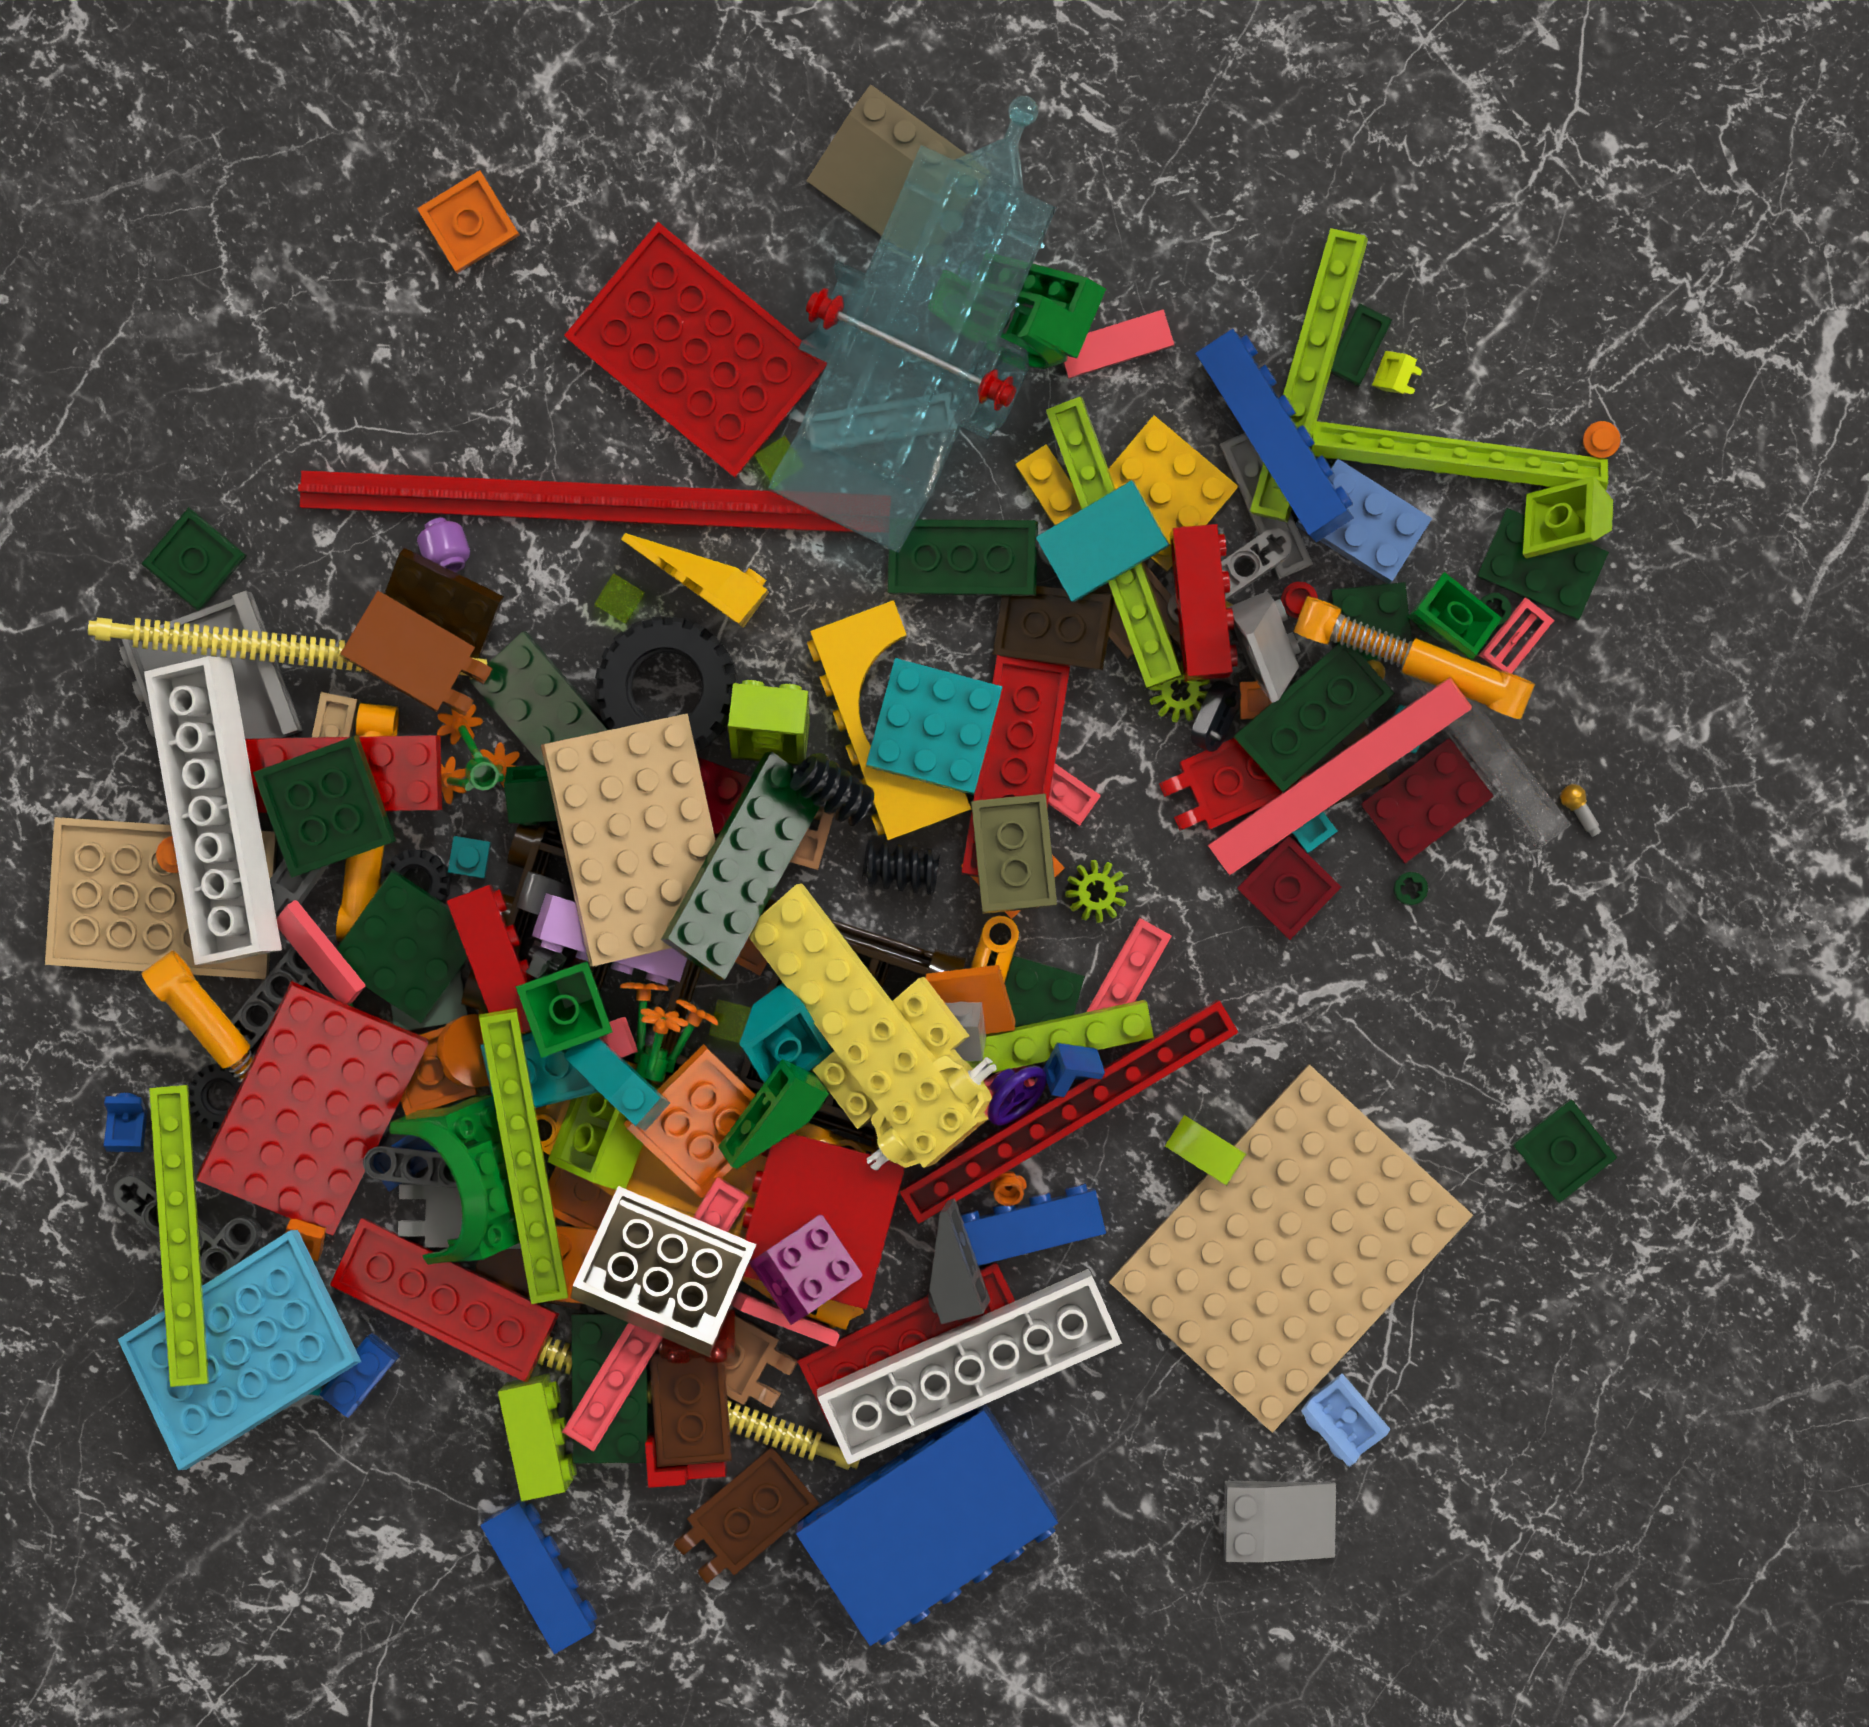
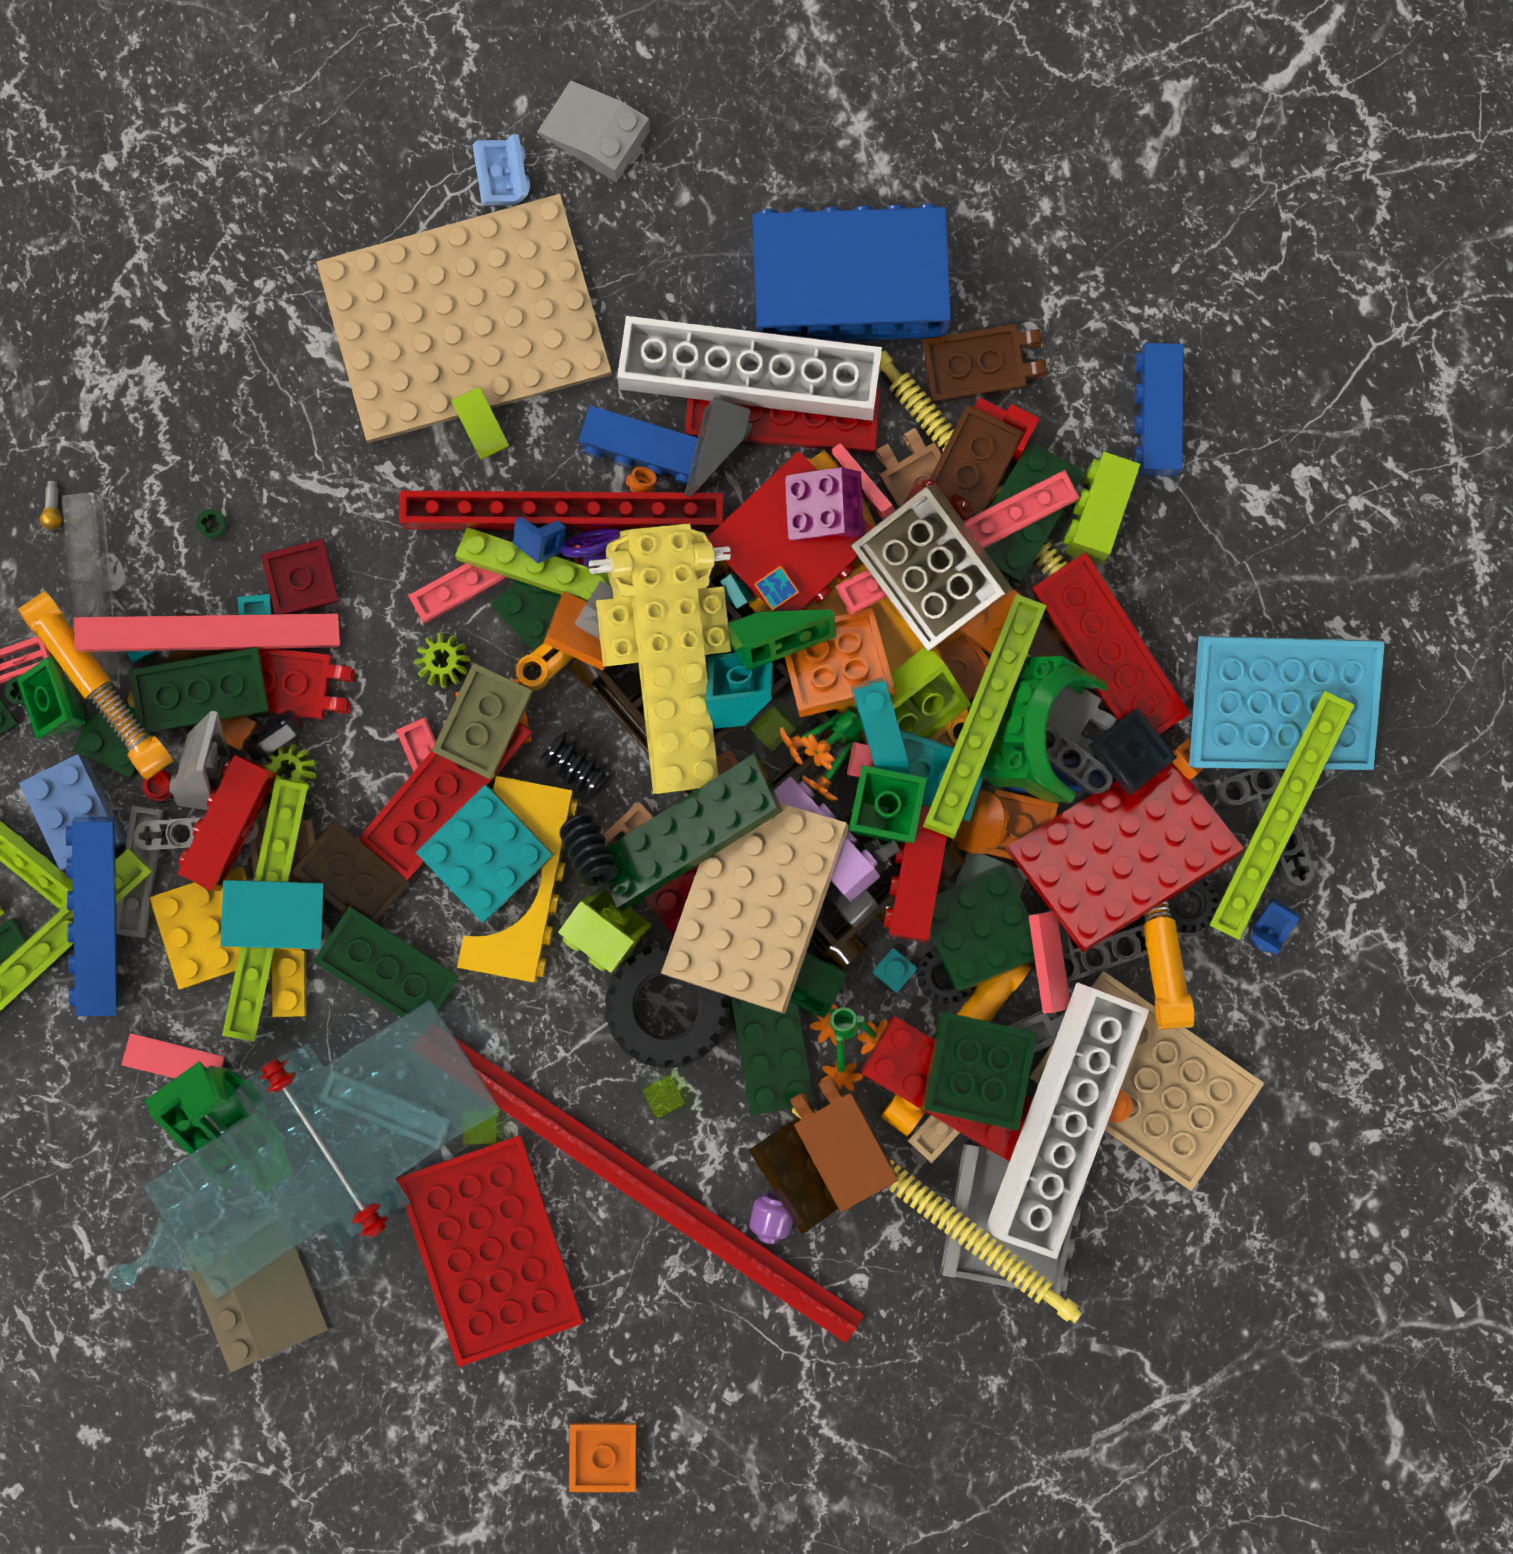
camera: 150 degrees left, 5 degrees down
(194, 559) = (968, 1325): dark green tile -> none
(354, 1385) = (1185, 636): blue brick -> none
(361, 1211) = (1132, 751): none -> black tile
(719, 584) = (580, 1058): yellow wedge -> none
(804, 1158) = (776, 588): none -> tile
(843, 1133) = (736, 591): none -> teal plate
(1426, 800) = (159, 581): dark red plate -> none
(1564, 1150) = (220, 267): dark green plate -> none

